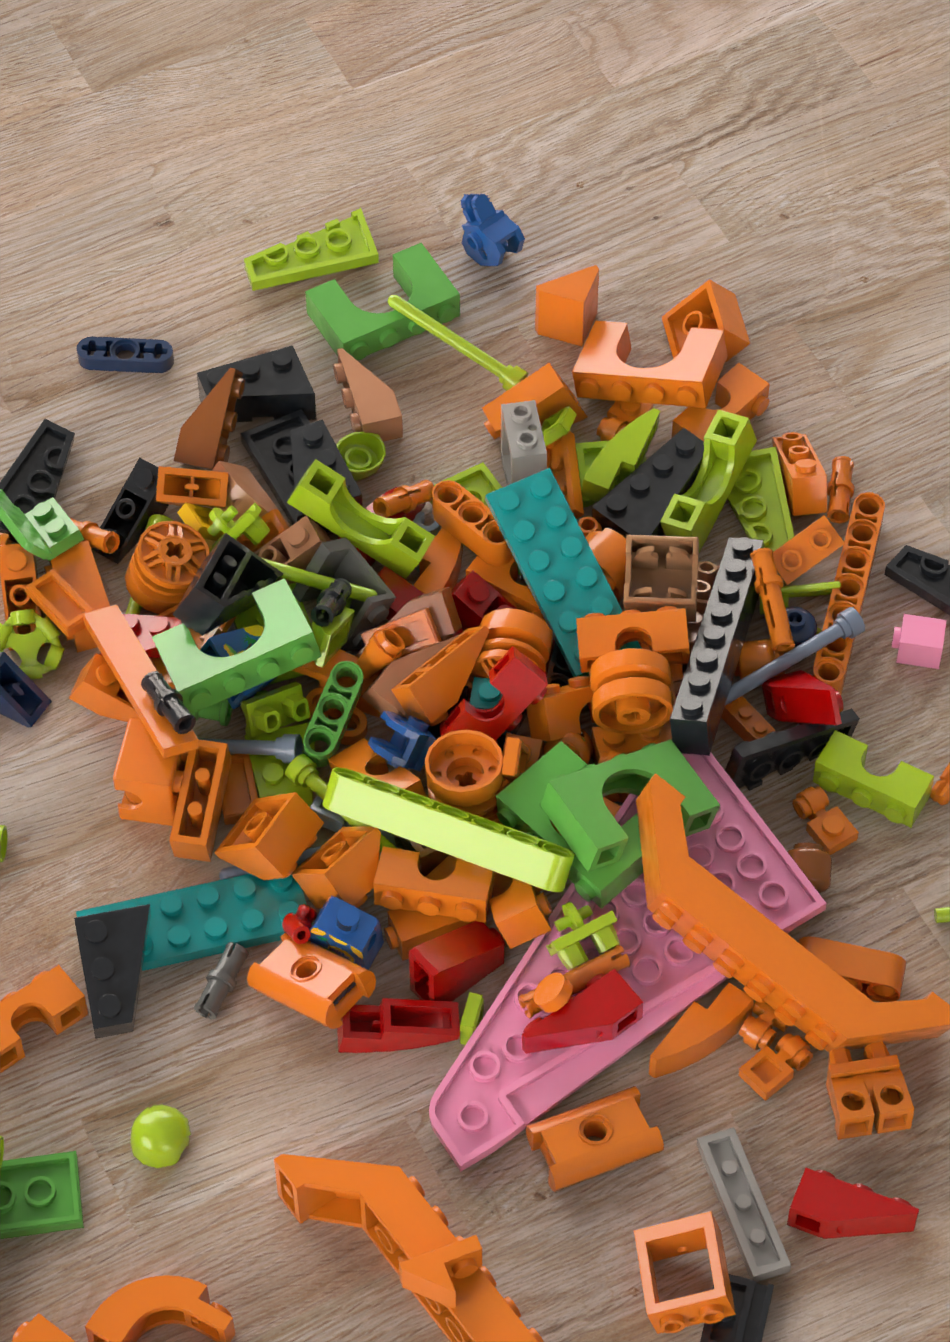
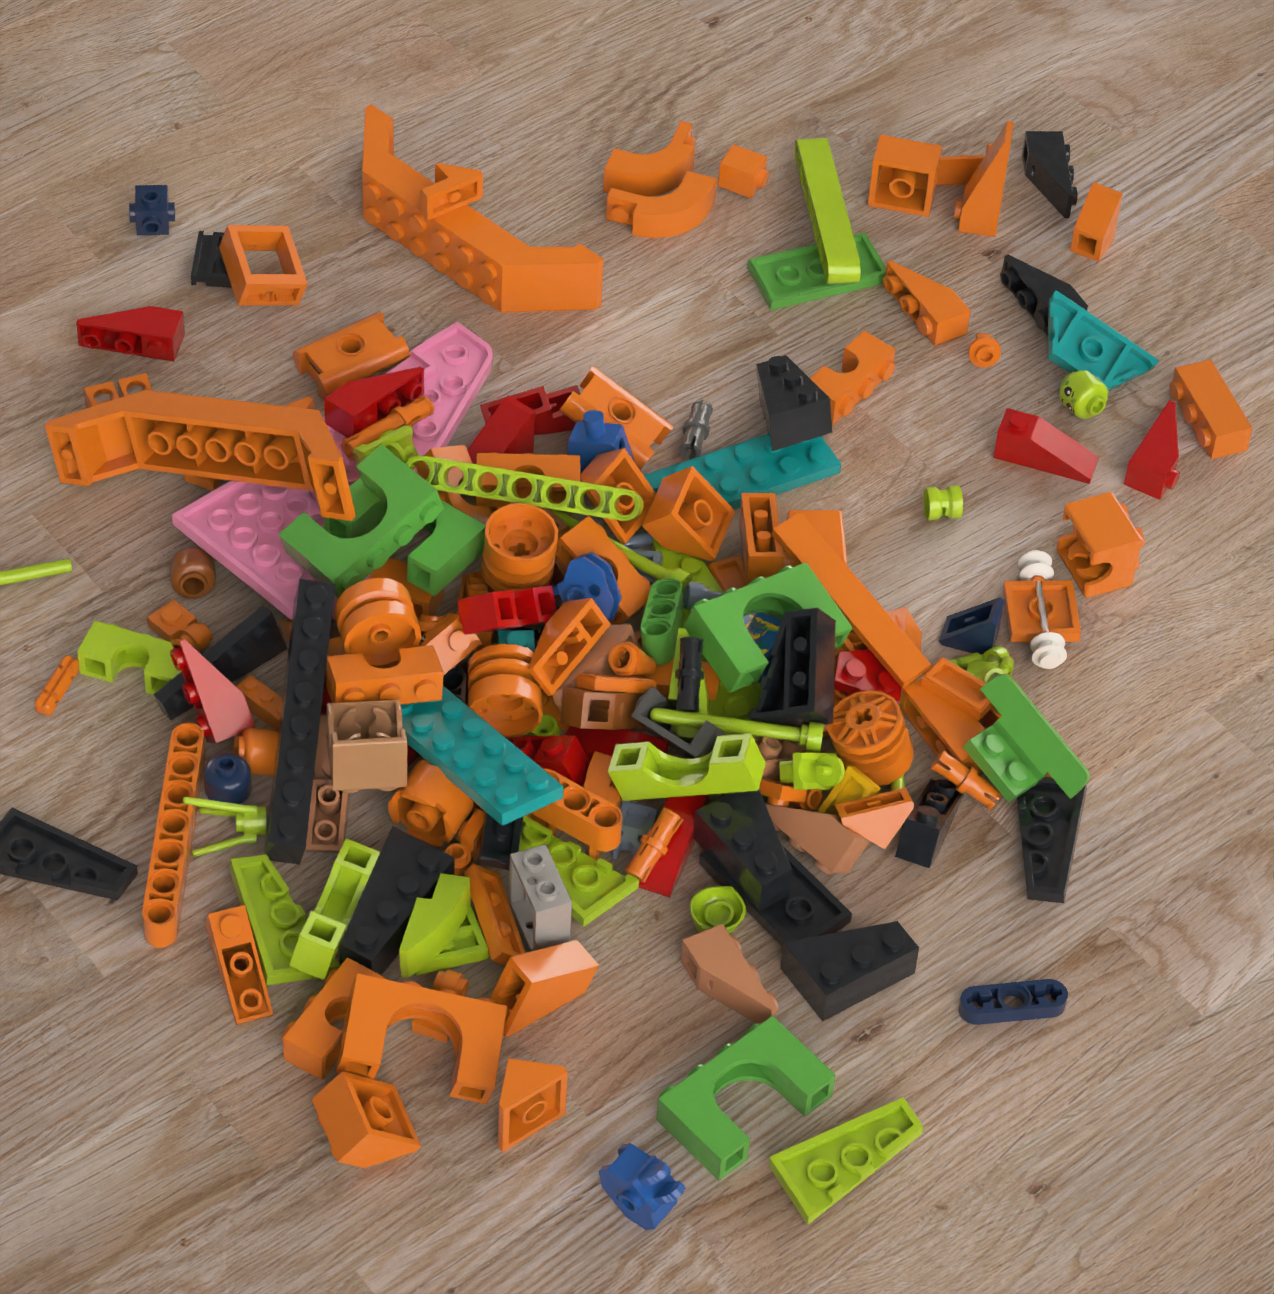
camera: 165 degrees right, 5 degrees down
(159, 1136) = (708, 321): lime hair -> none
(168, 702) = (811, 550): black pin -> none
(207, 430) = (882, 891): dark orange slope -> none
(298, 924) = (643, 454): red arm -> none
(471, 1017) = (472, 421): lime tile -> none
(508, 375) = (576, 1028): lime piece -> none
(514, 758) = (476, 559): orange tile -> none
(552, 992) = (403, 391): orange tile -> none
(558, 425) = (509, 944): lime tile -> none
(743, 1205) = (222, 330): light grey plate -> none
(769, 587) = (255, 776): orange pin -> none
(806, 550) = (223, 838): orange brick -> none
(840, 489) = (192, 956): orange pin -> none
(847, 624) = (173, 764): sand blue piece -> none
(869, 970) = (143, 501): orange beam -> none
(919, 641) = (96, 797): bright pink brick -> none

